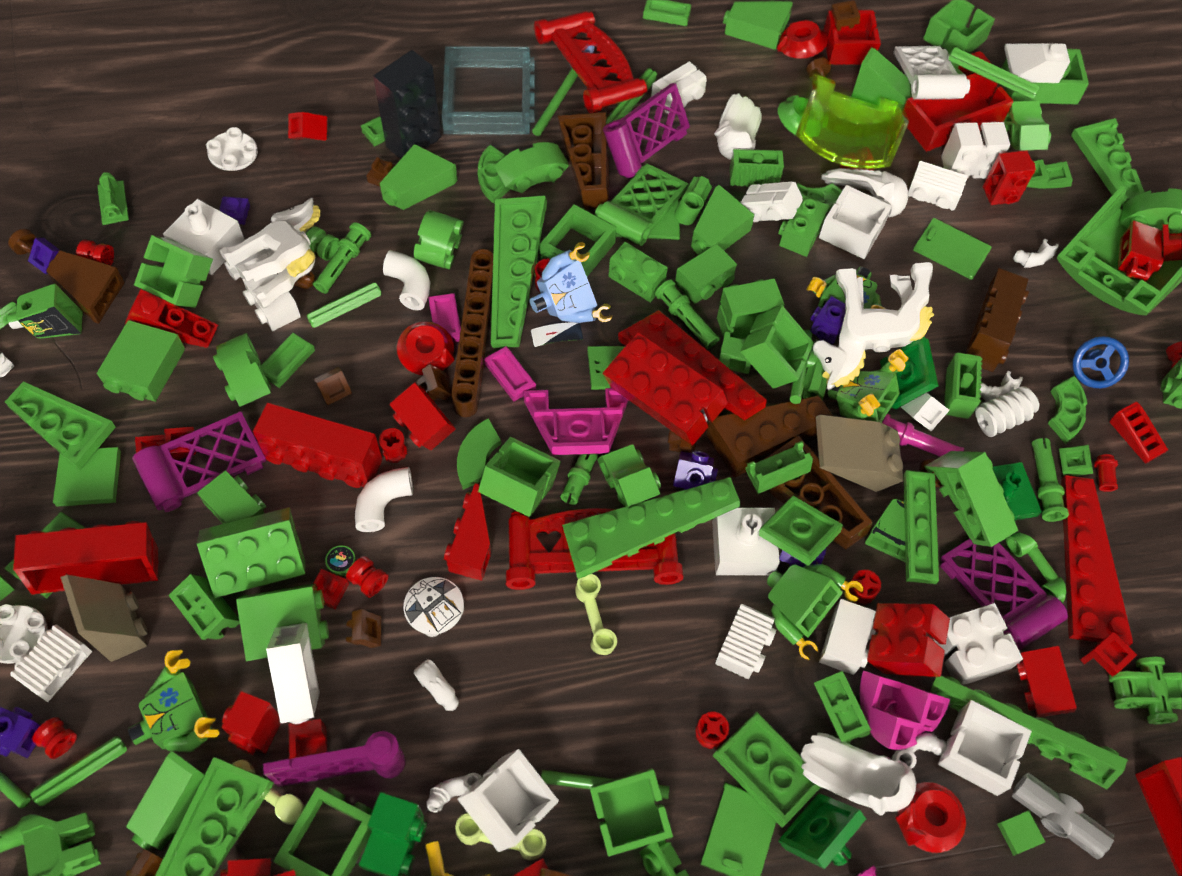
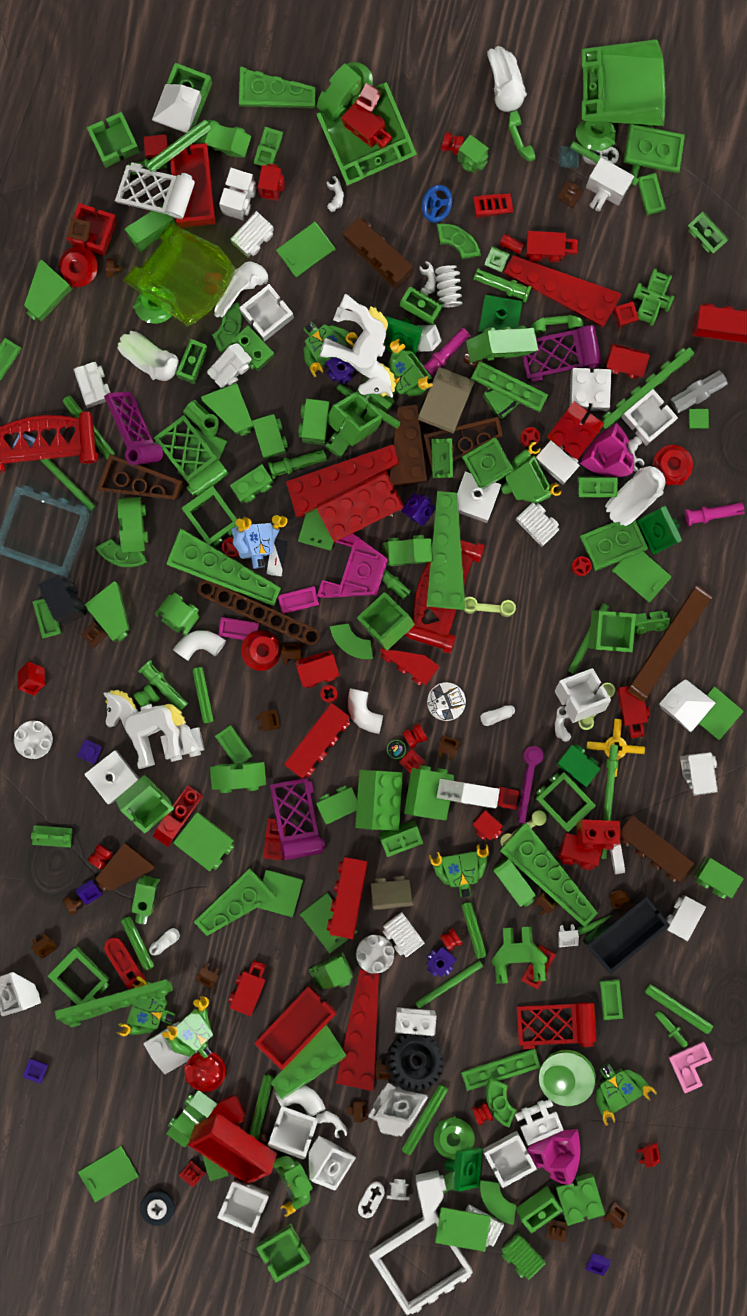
camera: 70 degrees left, 25 degrees up
(1135, 519) = (549, 246): none -> red brick

